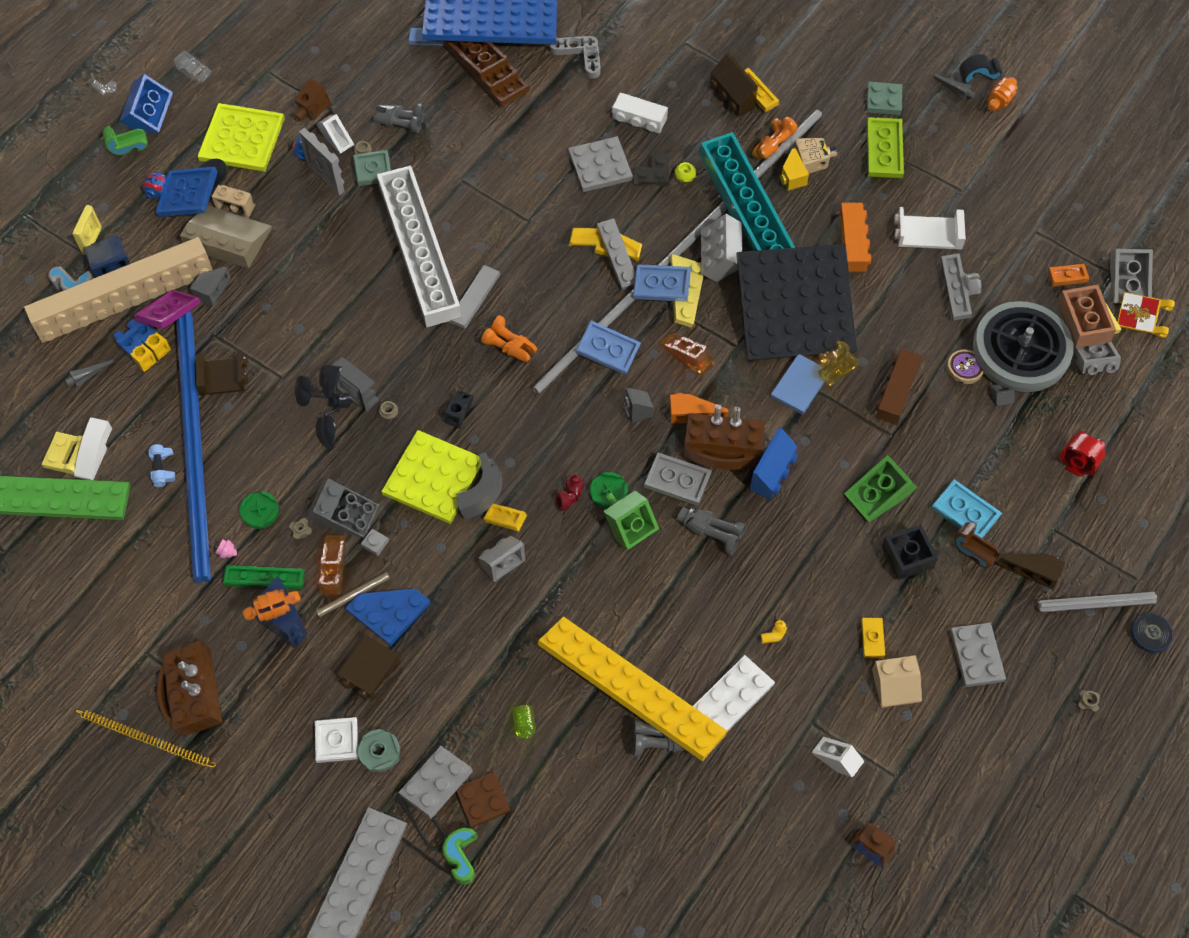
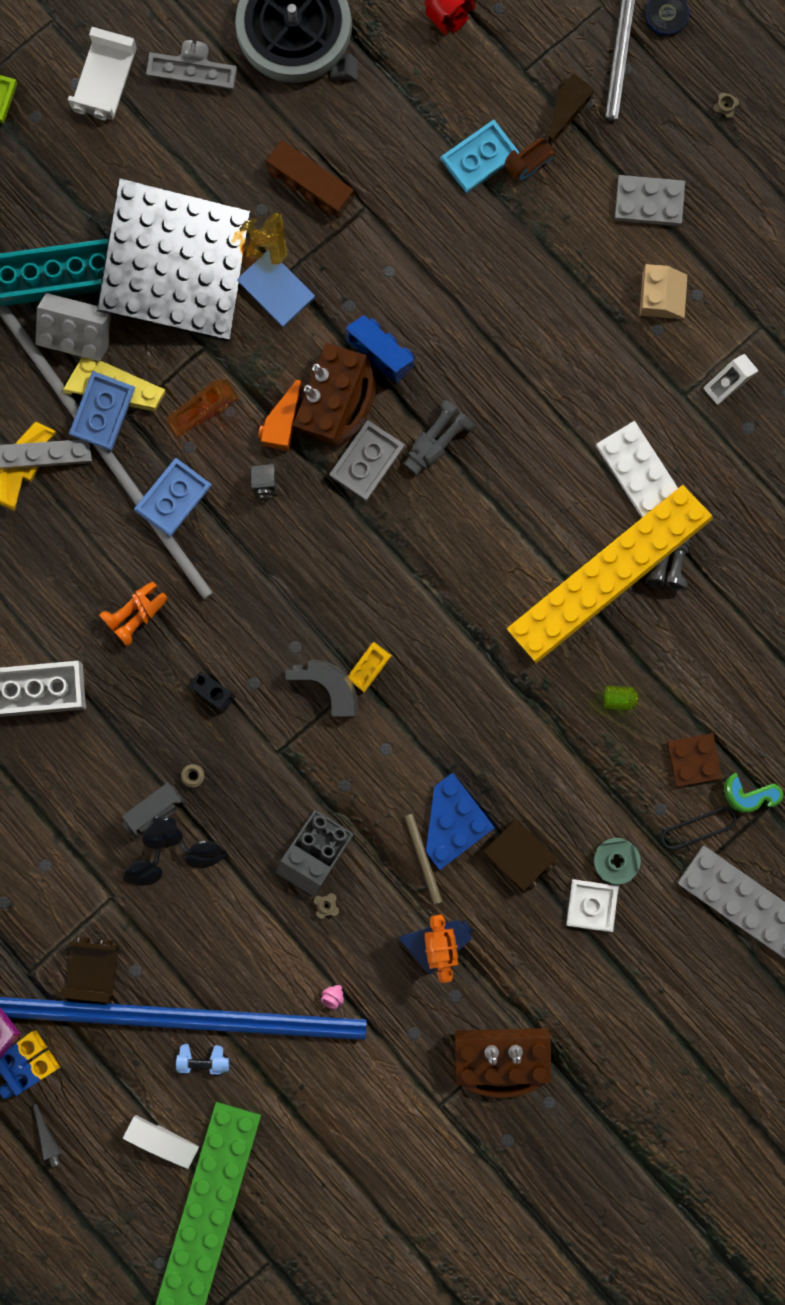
camera: 75 degrees left, 20 degrees up
(59, 452) = (151, 1183): light yellow plate -> none
(148, 736) = (543, 1114): yellow piece -> none
(259, 510) = (288, 951): green tile -> none
(262, 576) = (377, 957): green tile -> none
(332, 565) = (381, 875): clear orange slope -> none
(374, 542) = (363, 822): light grey plate -> none
(432, 476) = (294, 739): neon yellow plate -> none
(435, 782) = (666, 805): light grey plate -> none
(475, 295) = (53, 639): light grey tile -> none
(502, 558) = (421, 680): light grey slope -> none
(574, 487) = (350, 580): dark red arm -> none
(605, 484) = (360, 542): green tile -> none
(630, 519) = (410, 526): bright green piece -> none
(776, 634) = (579, 403): yellow arm -> none
(854, 236) = (89, 166): orange brick -> none
(873, 637) = (606, 303): yellow plate -> none
(880, 489) = (435, 240): bright green slope -> none
(909, 552) = (521, 232): black brick -> none
(964, 367) = (299, 98): tile -> none

